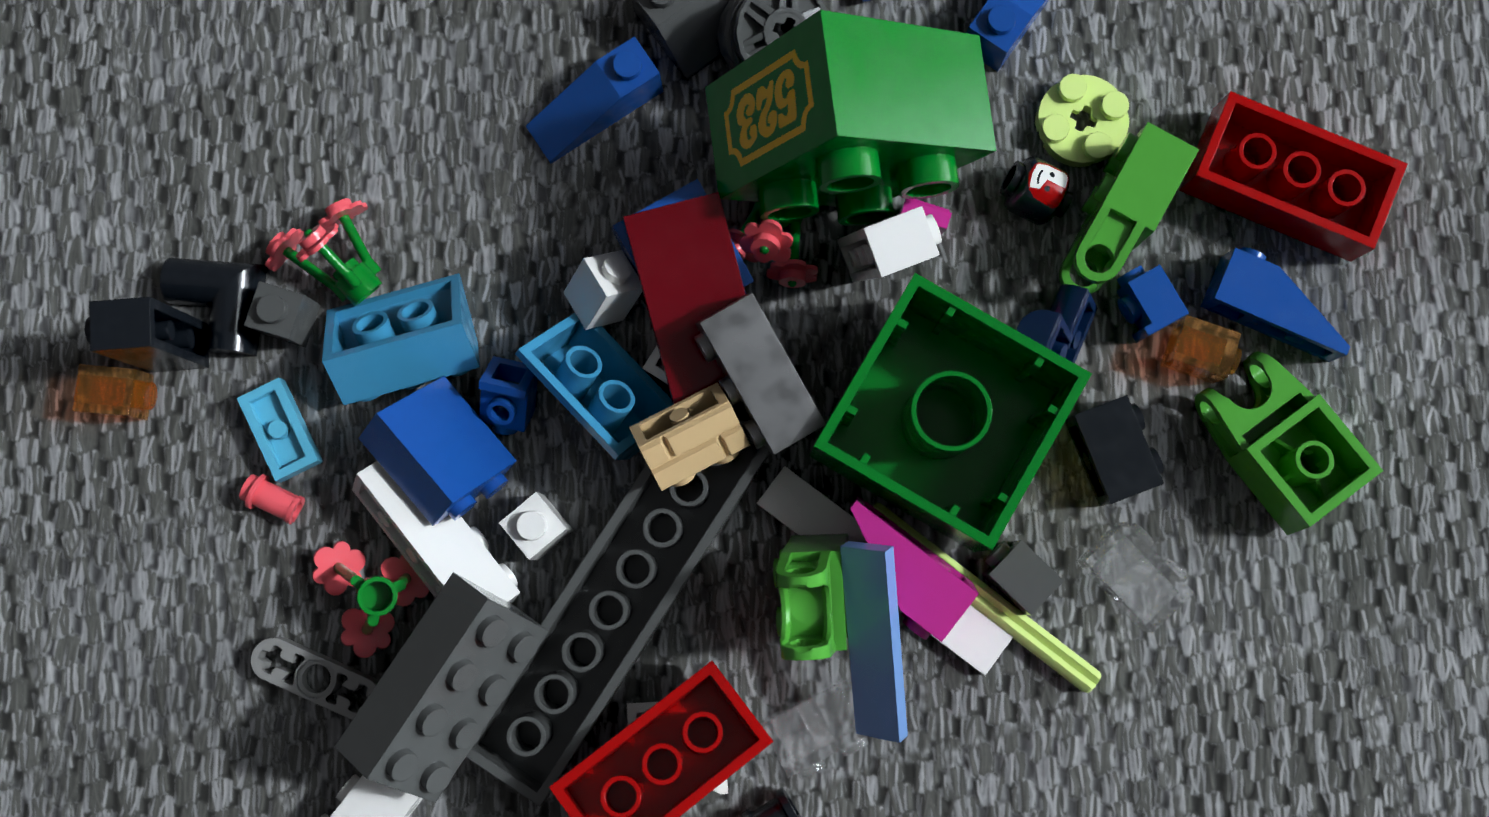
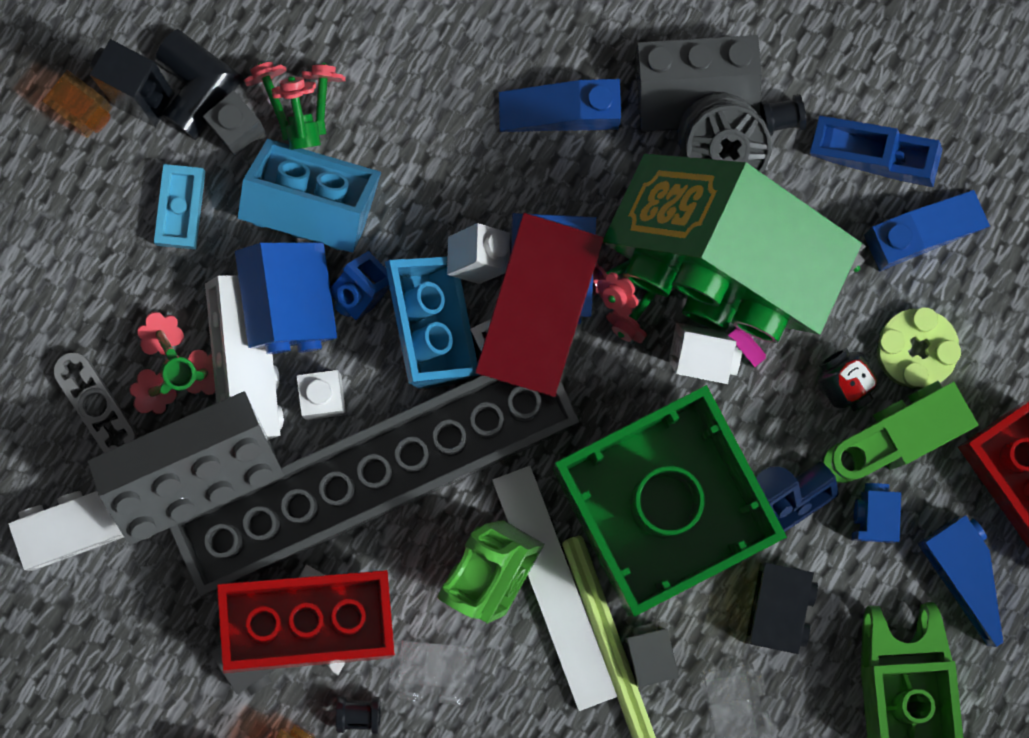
camera: 25 degrees right, 0 degrees up
(263, 494) = (142, 253): coral pin -> none
(690, 437) = (472, 401): tan brick -> none
(758, 375) = (549, 387): flat silver brick -> none
(874, 640) = (511, 629): medium blue tile -> none
(927, 587) = (572, 606): dark pink slope -> none
(1202, 350) = (894, 576): clear orange brick -> none

